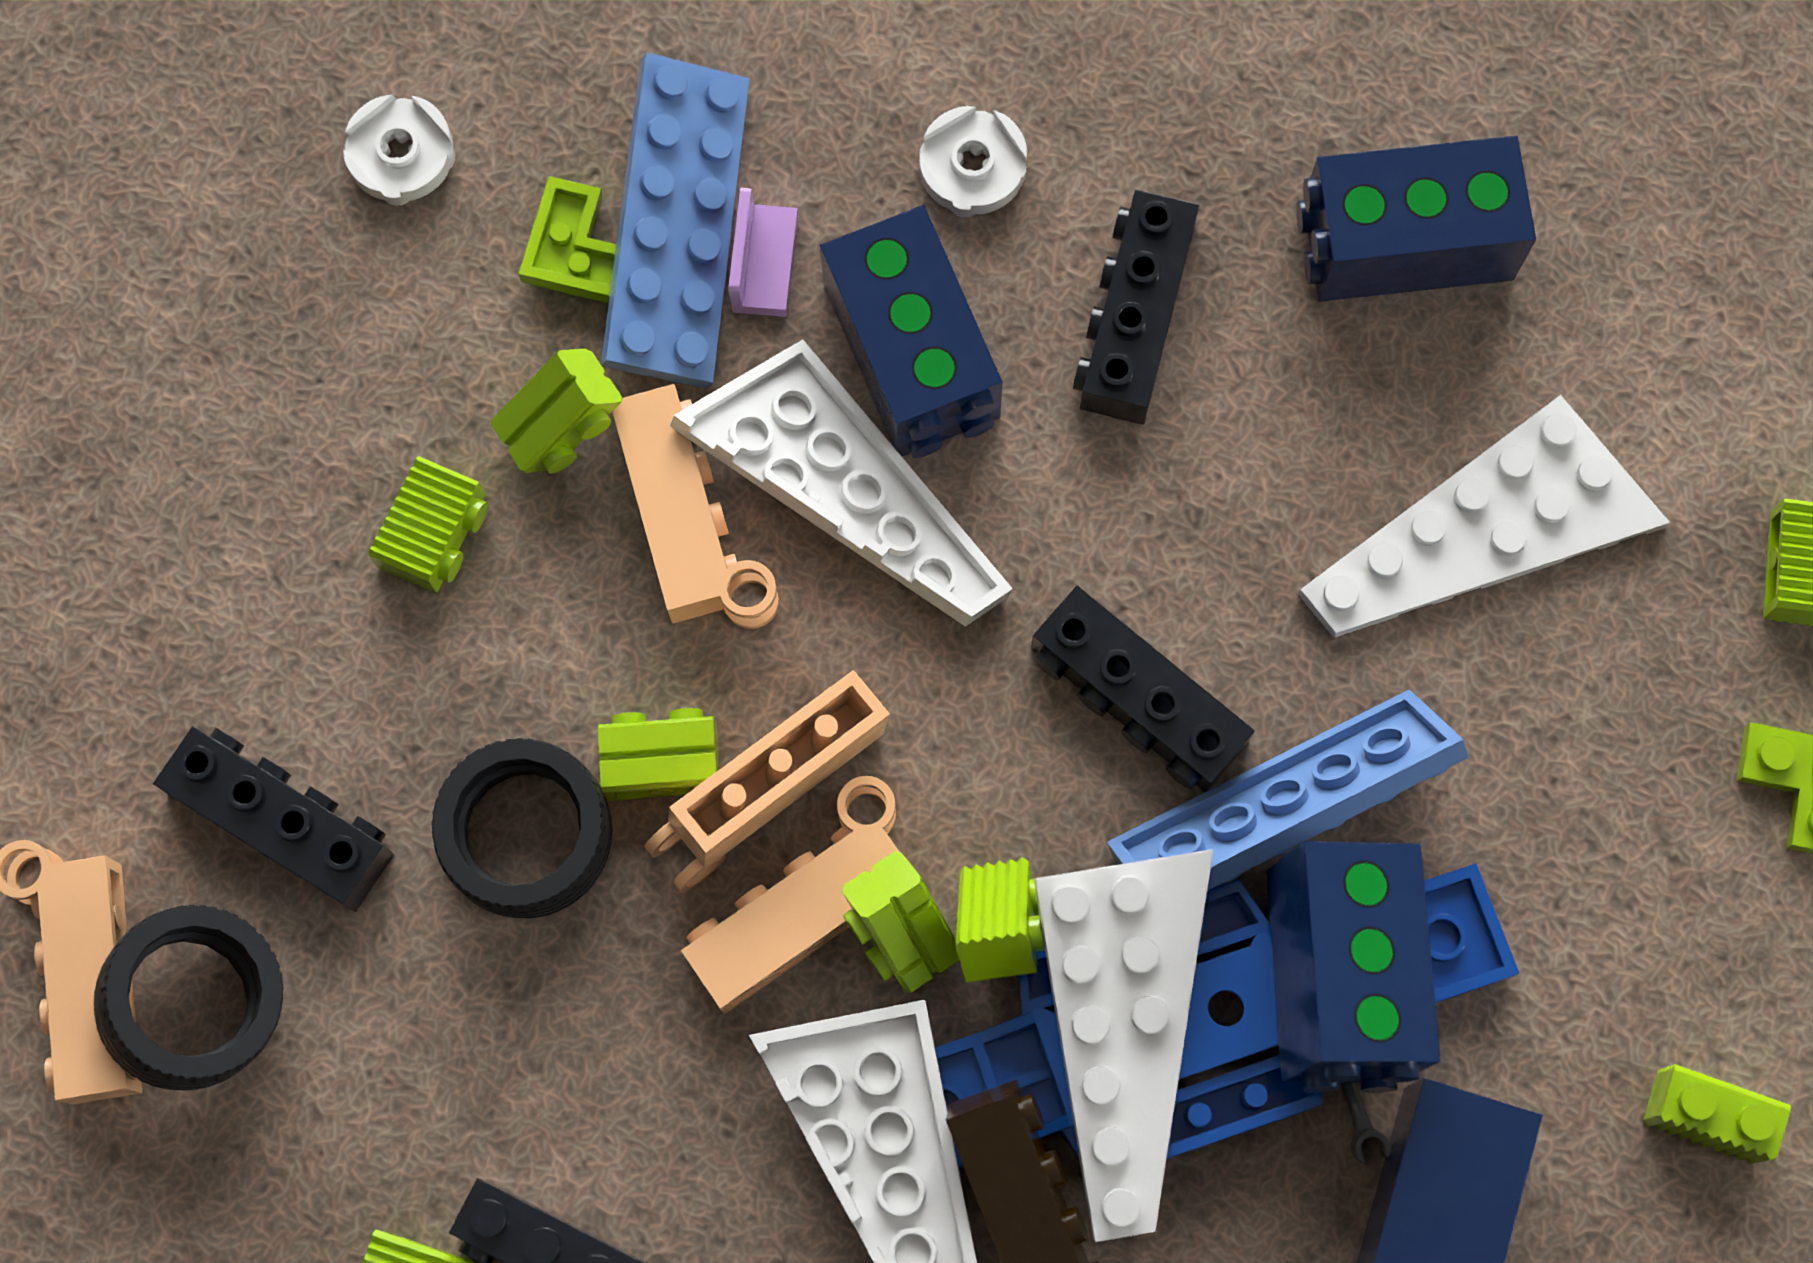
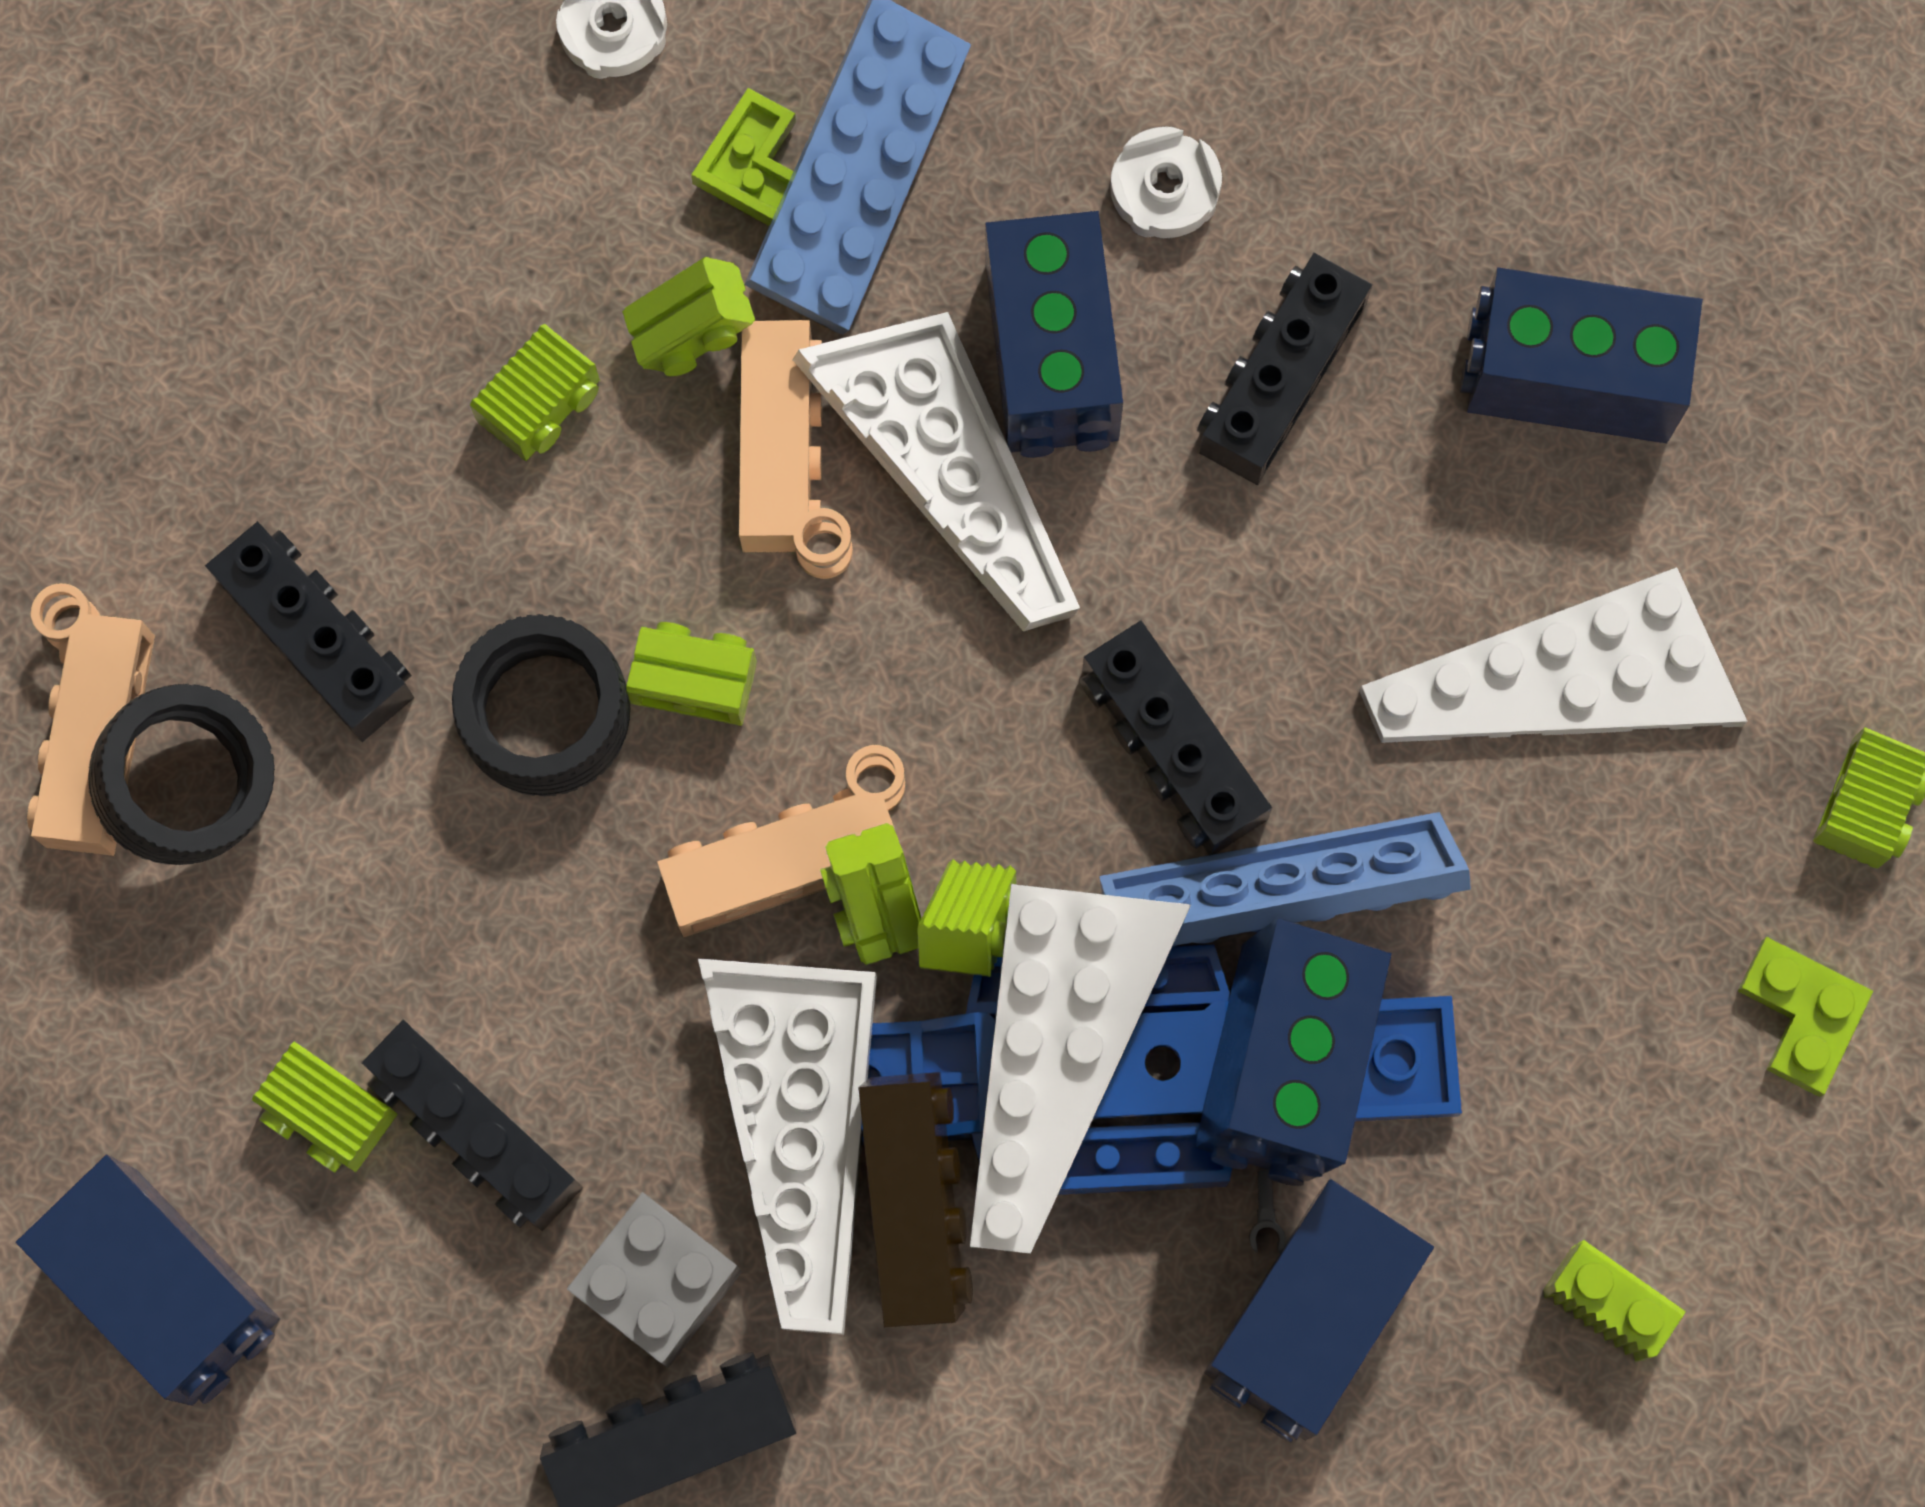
camera: 15 degrees right, 0 degrees up
(762, 257) = (931, 221): lavender panel -> none
(770, 776) = (790, 721): light nougat hinge -> none

